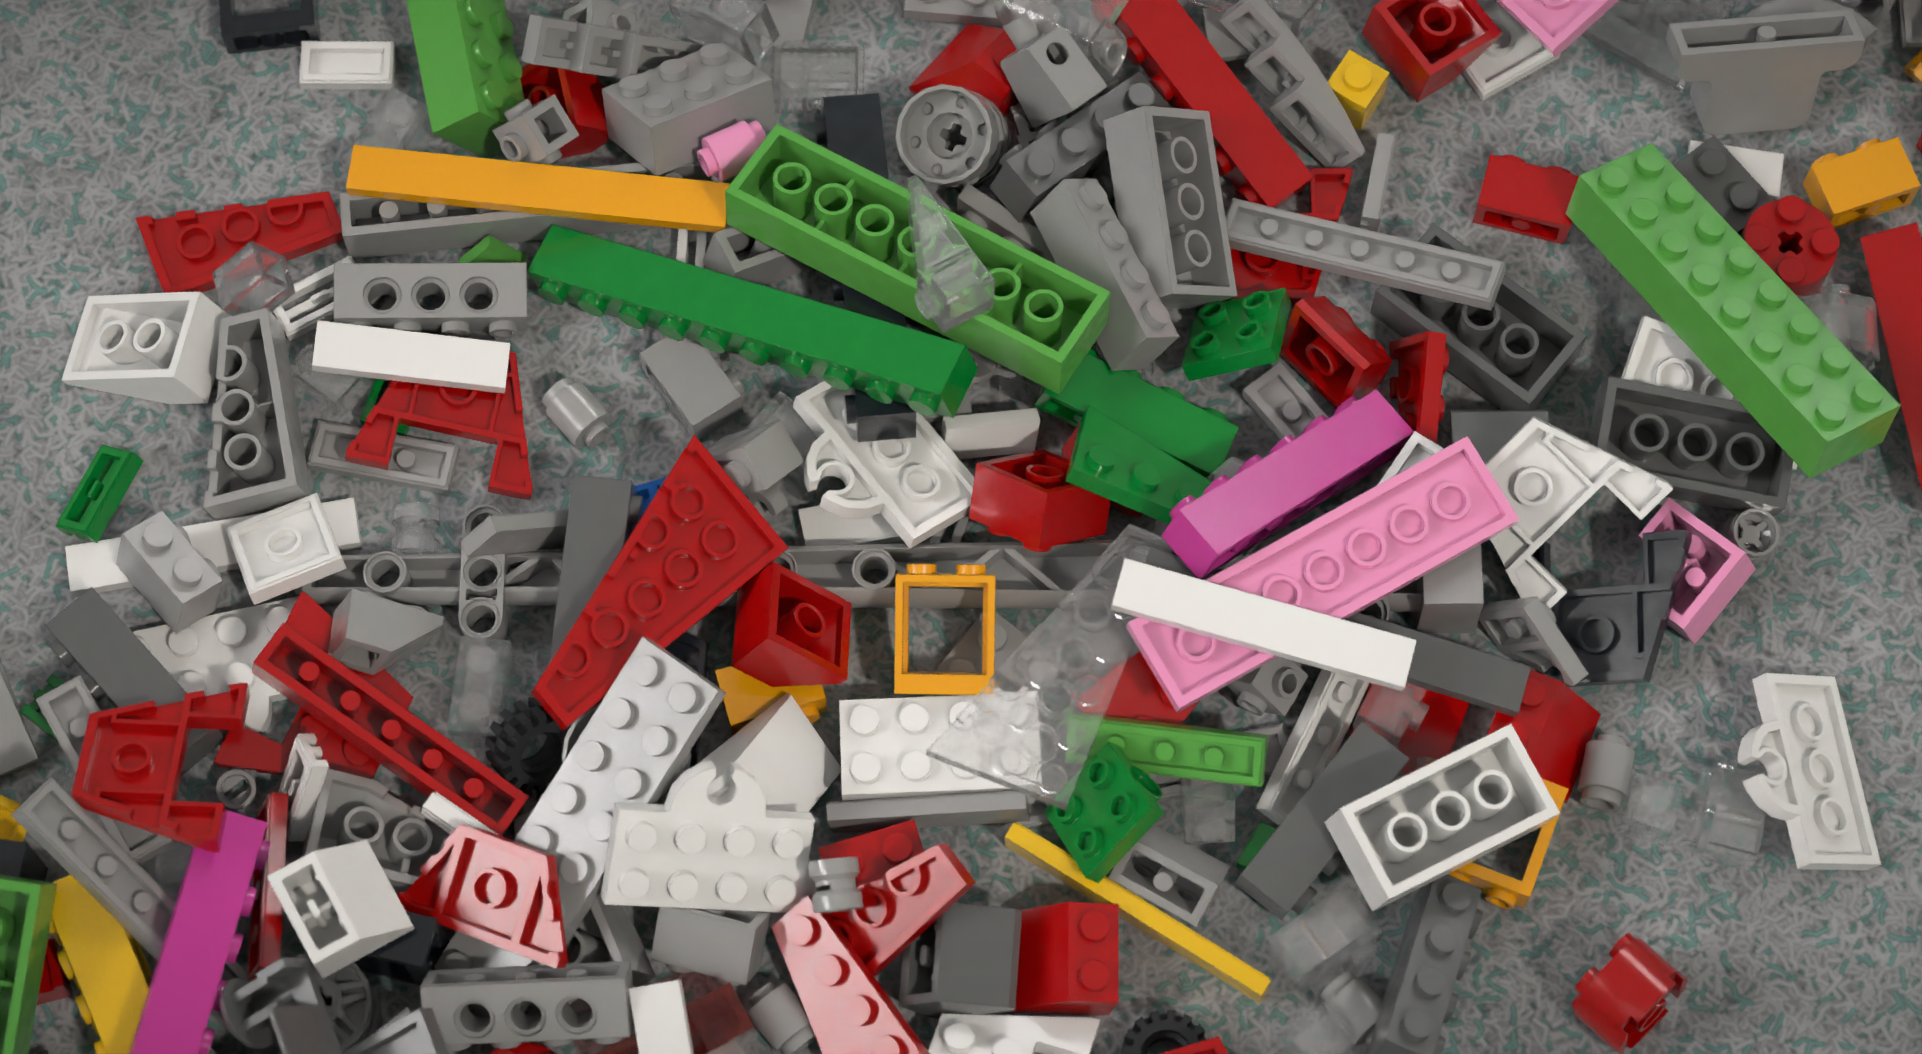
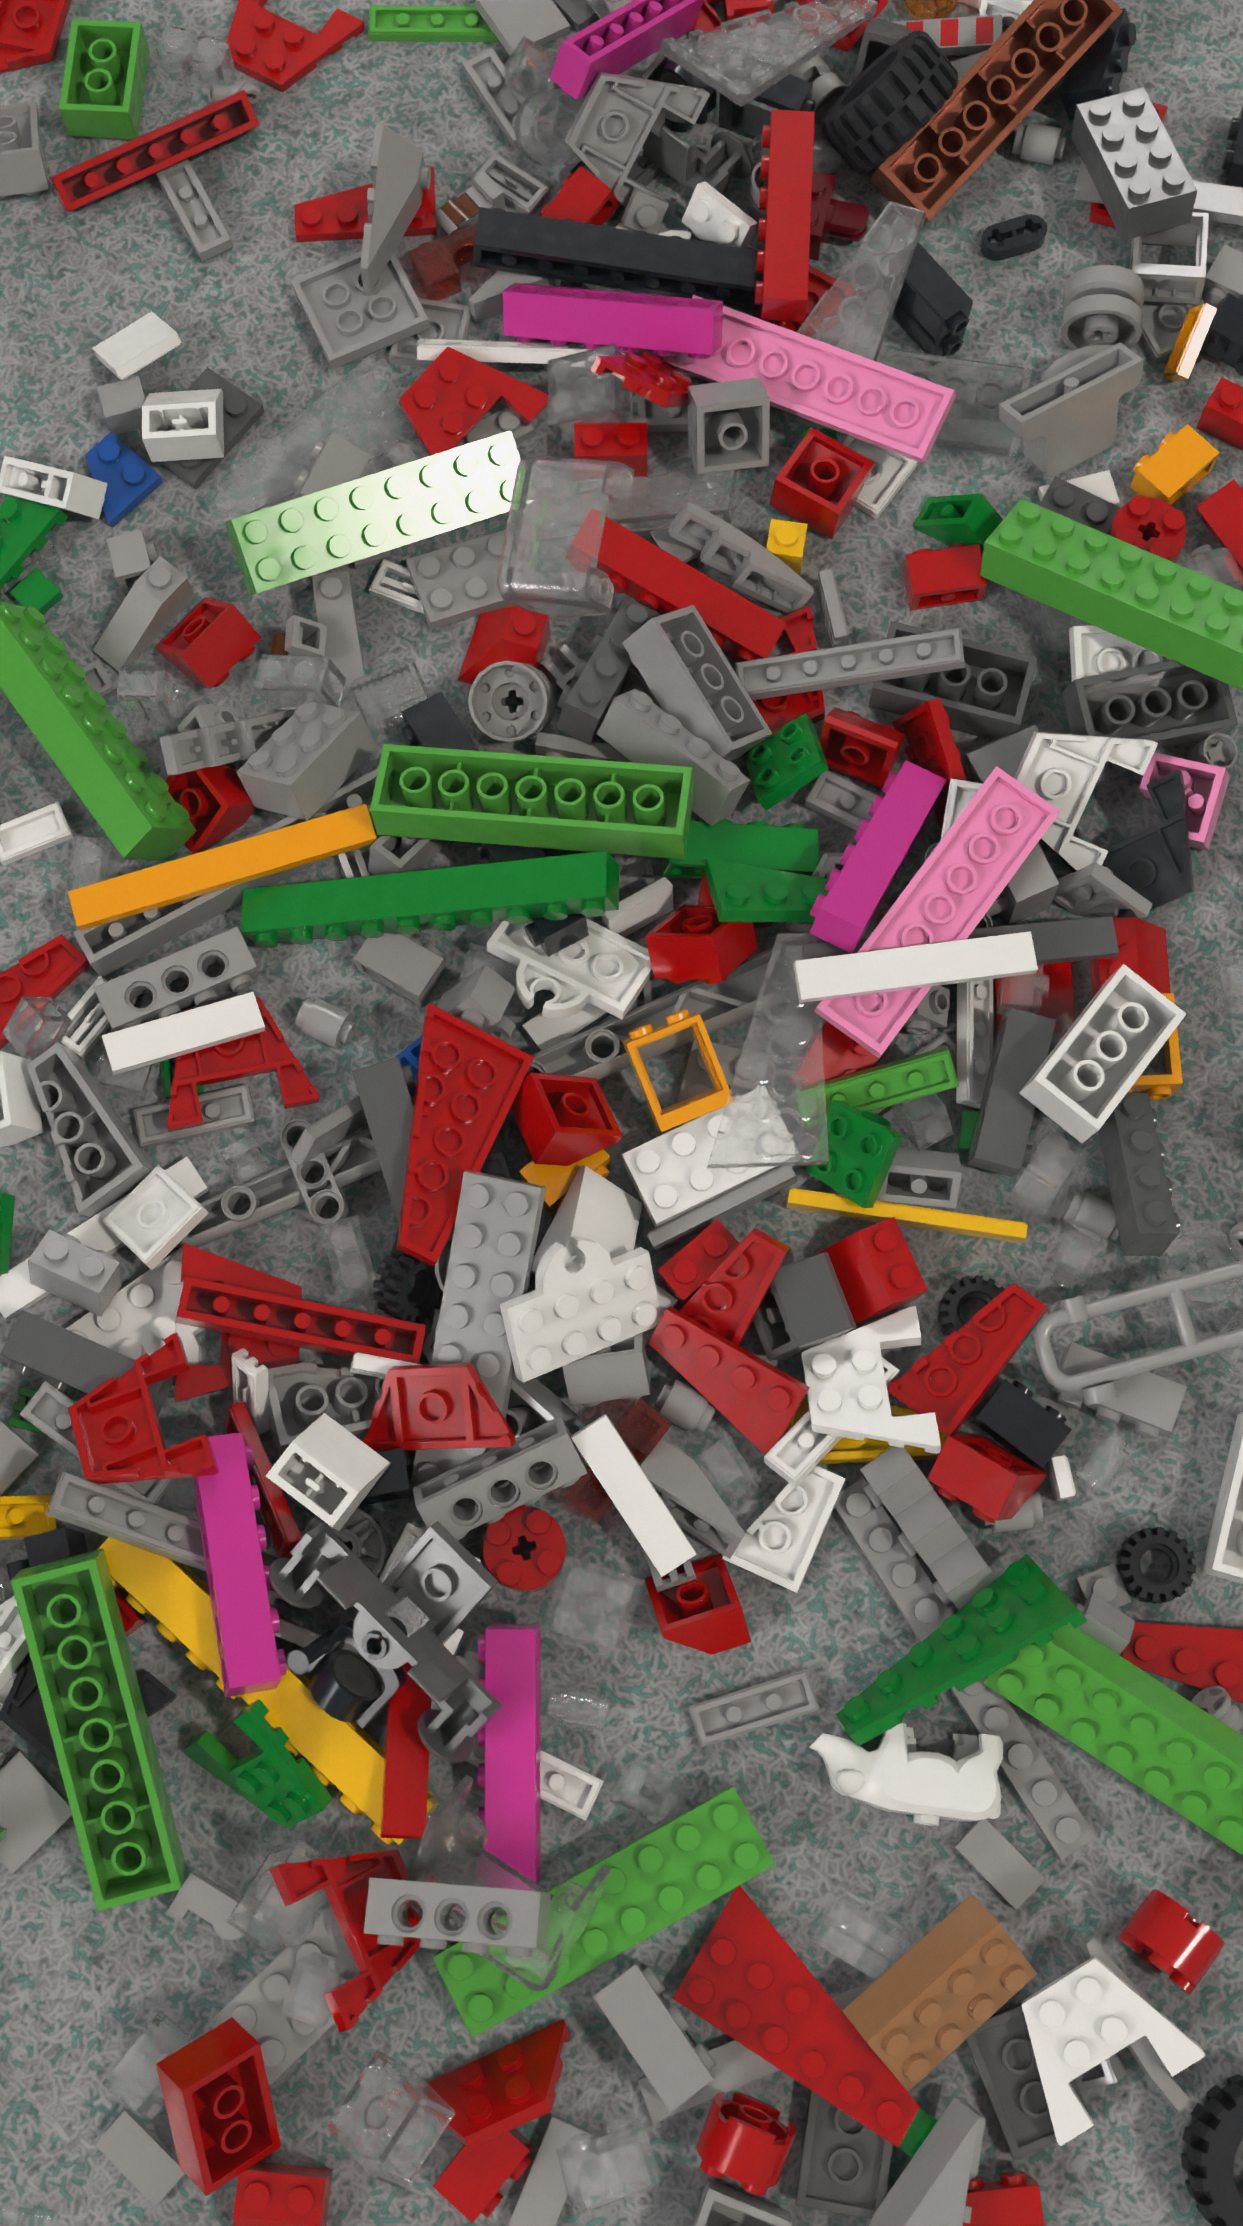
camera: 20 degrees left, 5 degrees up
(230, 780) = (208, 1417): light grey hinge -> none
(378, 632) = (253, 1250): light grey slope -> none
(493, 251) = (207, 928): bright green tile -> none
(535, 131) = (201, 824): light grey brick -> none
(730, 149) = (355, 777): bright pink brick -> none
(835, 885) = (686, 1293): light grey wheel -> none
(948, 273) = (566, 801): clear slope -> none
(1048, 71) = (563, 623): light grey torso -> none
(1573, 137) = (958, 519): none -> green slope
(1605, 772) = (1190, 970): light grey brick -> none

